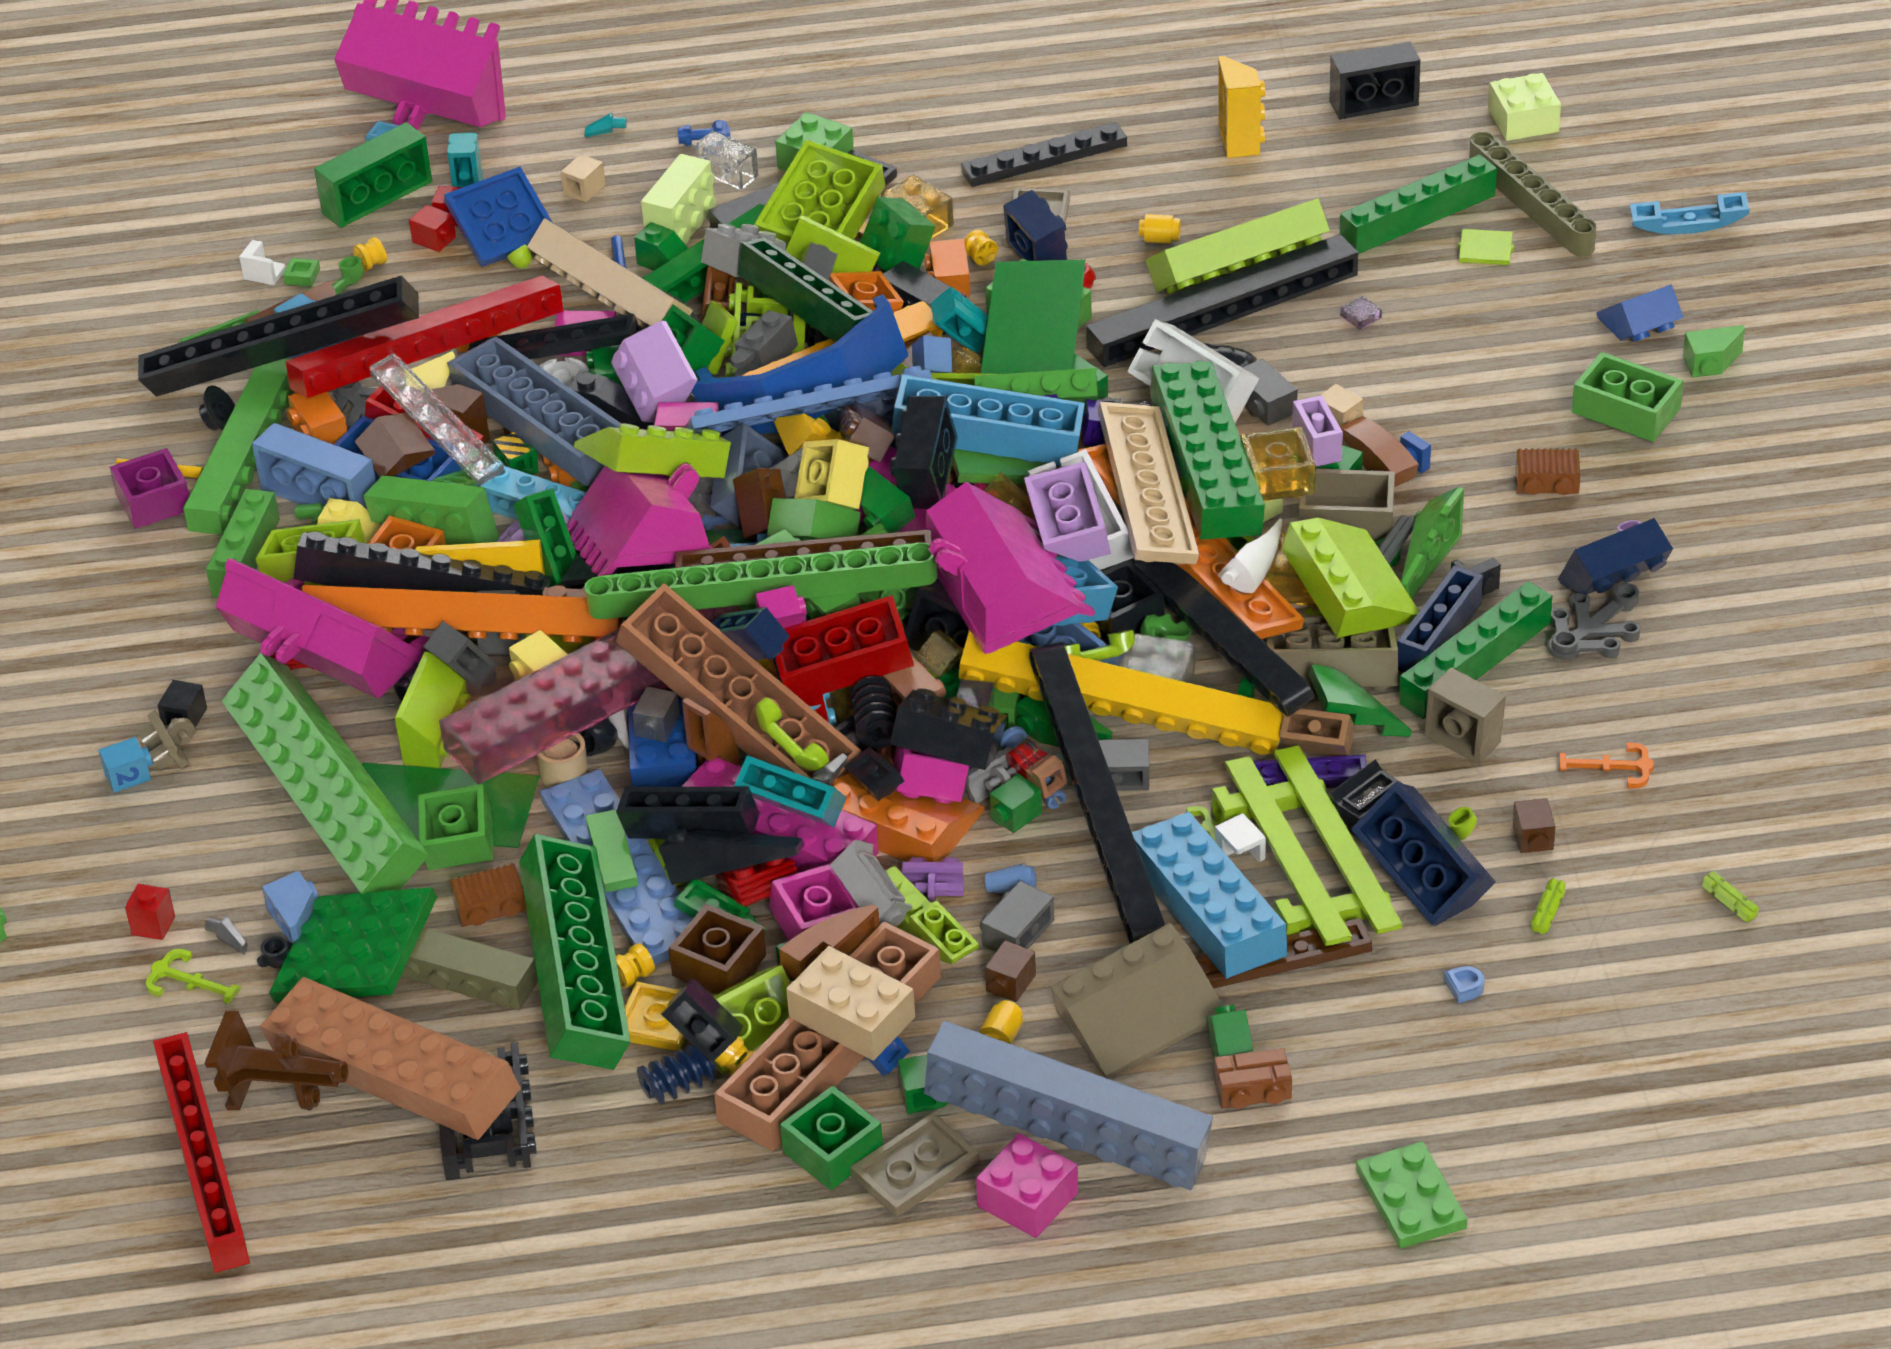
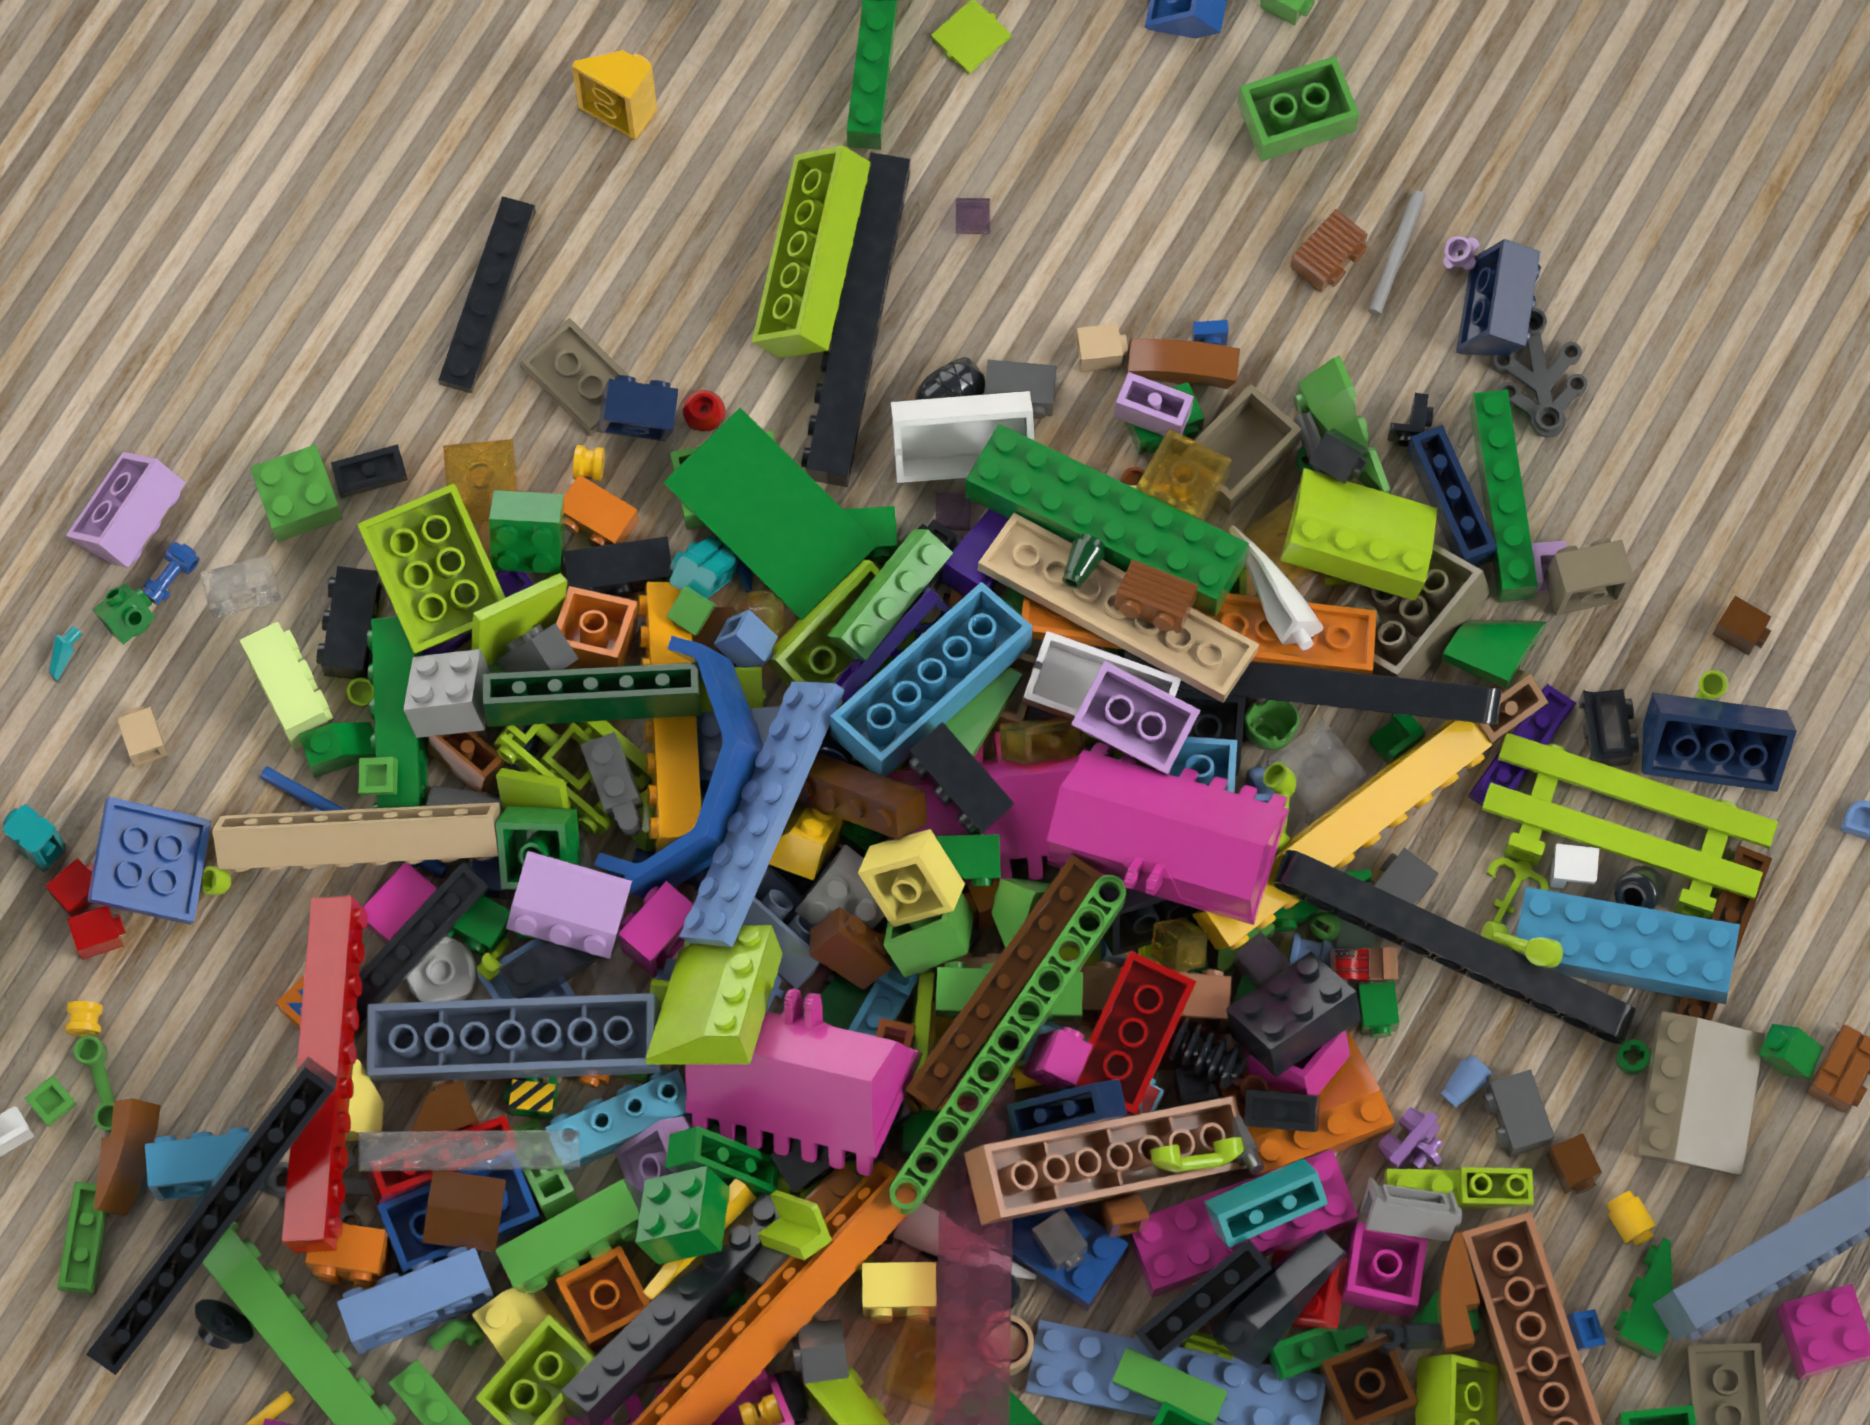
camera: 55 degrees left, 30 degrees up
(485, 521) = (682, 1215): none -> green brick
(528, 585) = (799, 1228): none -> lime panel
(655, 126) = (125, 612): none -> green brick
(656, 260) = (378, 776): none -> bright green plate
(725, 94) = (126, 509): none -> lavender slope
(769, 932) = (1410, 1336): none -> black bar
(851, 1003) = (1557, 1336): tan brick -> none
(922, 320) = (691, 610): none -> bright green tile
(1048, 744) = (1332, 921): none -> bright green hinge
(1141, 829) = (1539, 951): none -> lime bar
(1160, 228) = (706, 289): yellow brick -> none
(1160, 440) = (1083, 559): none -> dark green cone
(1170, 481) = (1155, 597): none -> dark orange brick
(1265, 878) = (1640, 887): none -> black head
(1394, 536) = (1340, 456): none -> black brick
(1548, 906) = (1832, 688): lime axle -> none
(1591, 509) = (1396, 253): none -> light grey bar
(1643, 765) = (1732, 478): orange piece -> none

